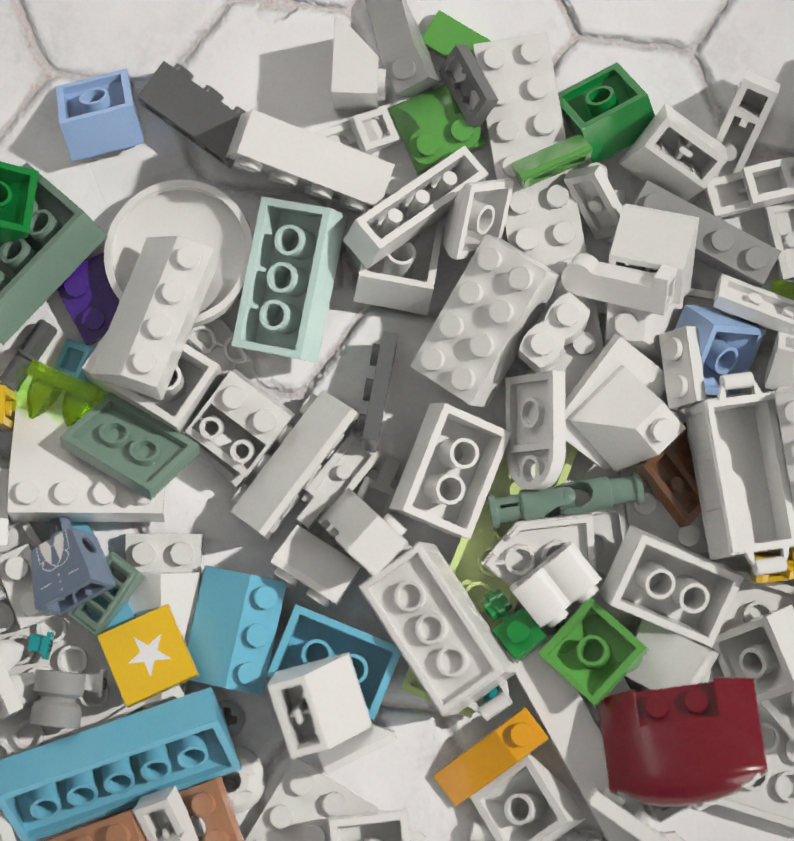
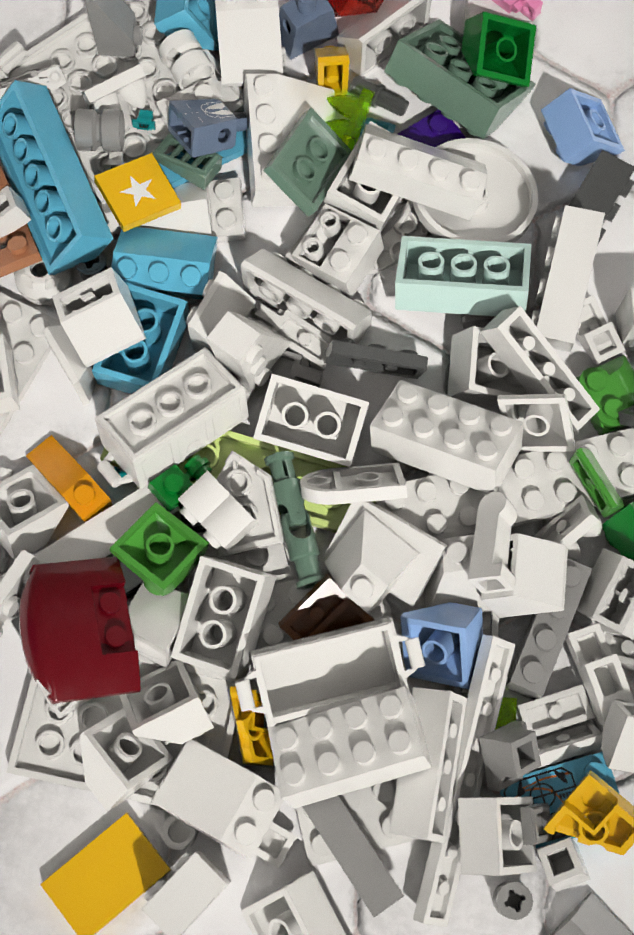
camera: 80 degrees right, 10 degrees down
(562, 326) = (447, 494): white brick -> none
(682, 367) = (423, 608): white plate -> none

